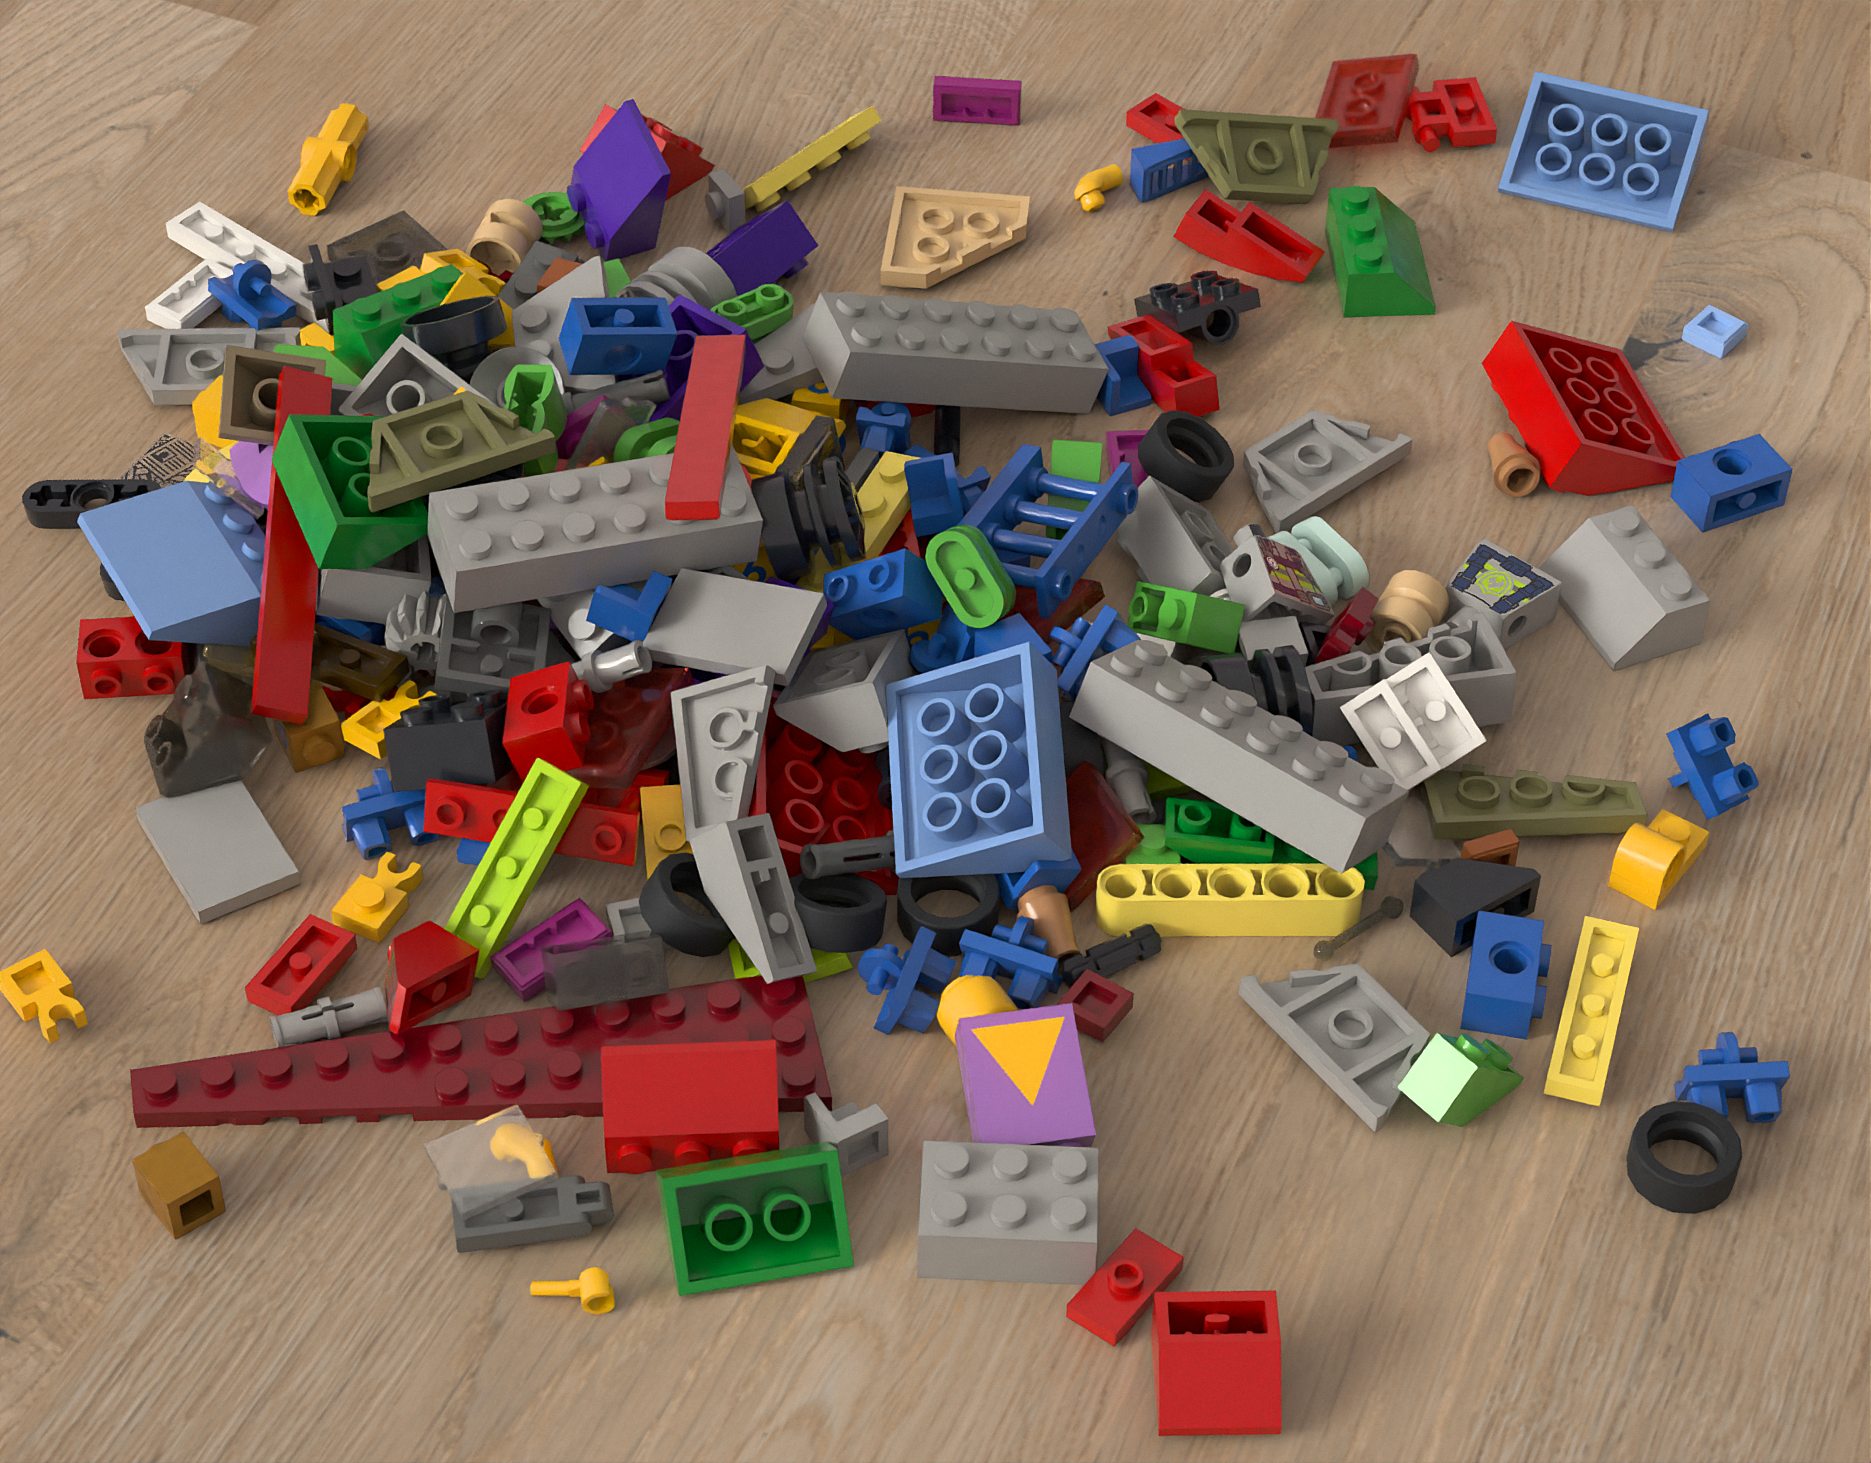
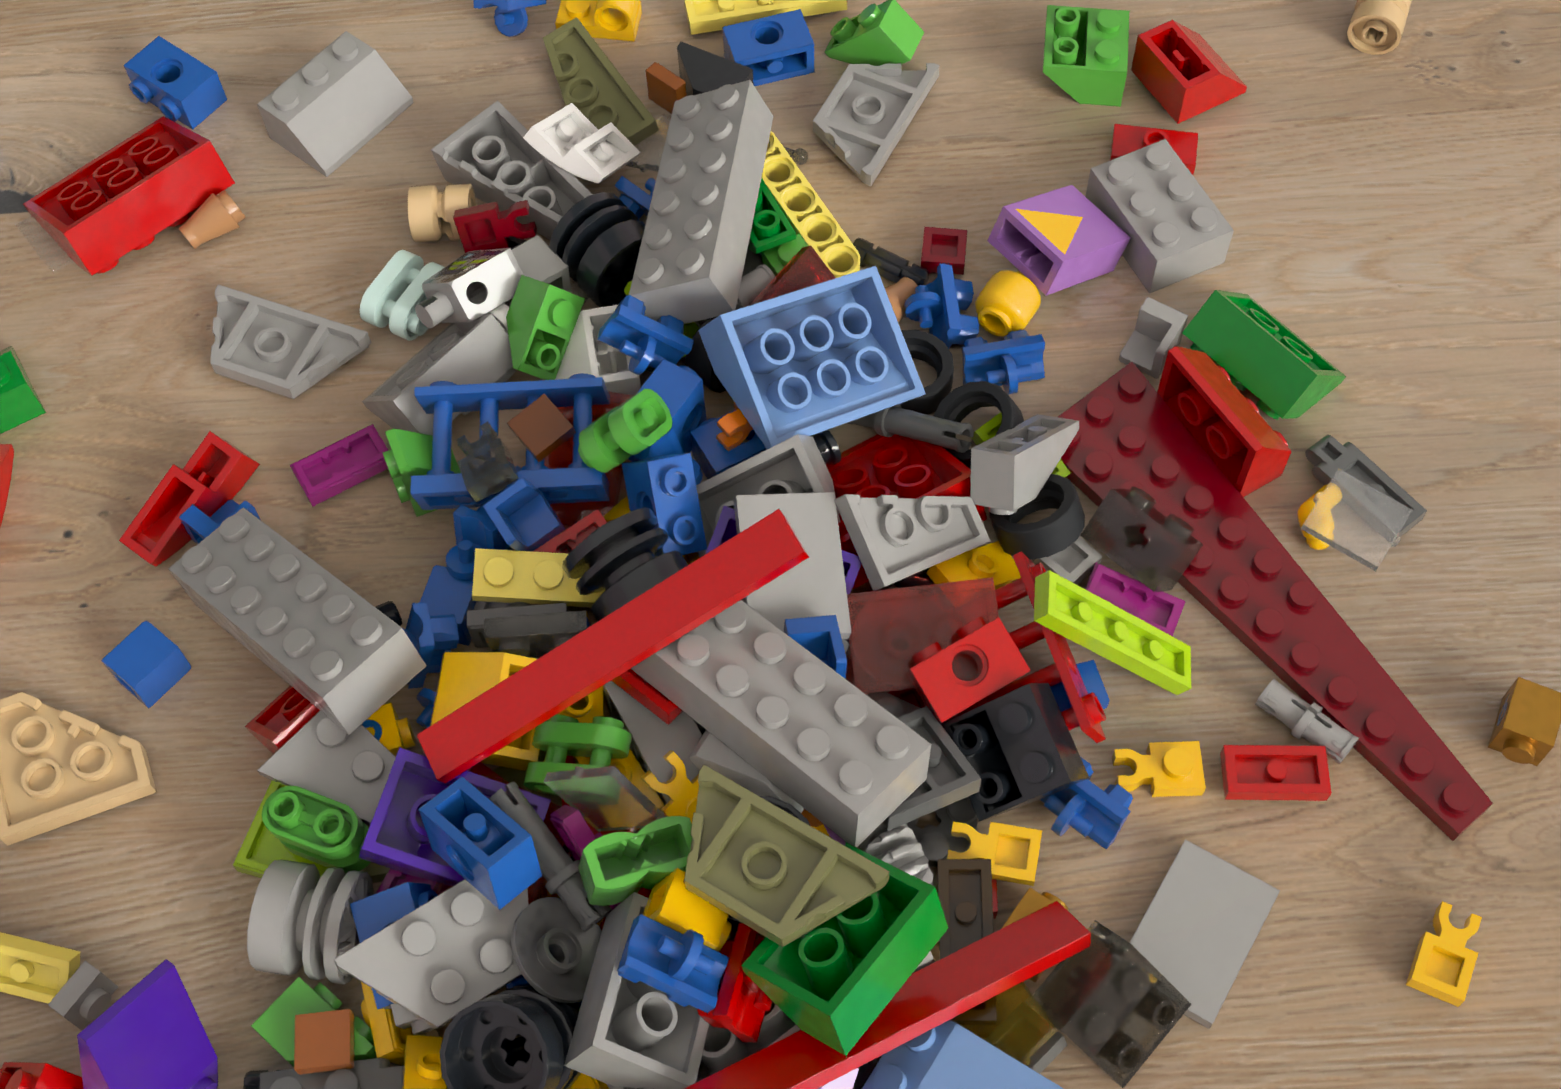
camera: 115 degrees left, 15 degrees up
(427, 974) = (1235, 663): red slope -> none
(430, 381) = (673, 963): none -> blue hips
(592, 1287) = (1385, 423): yellow hand -> none
(613, 666) = (884, 665): light grey pin -> none
(764, 249) = (186, 916): dark purple slope -> none
(1000, 284) = (147, 663): none -> blue panel
(1003, 477) = (487, 464): none -> clear smoke plate
(1024, 533) = (541, 427): none -> reddish brown tile
(1191, 303) = (93, 501): black plate -> none
(1195, 439) = (323, 418): black tyre -> none
(1315, 1262) = (1087, 52): none -> bright green slope
(1506, 589) = (382, 171): light grey torso -> none

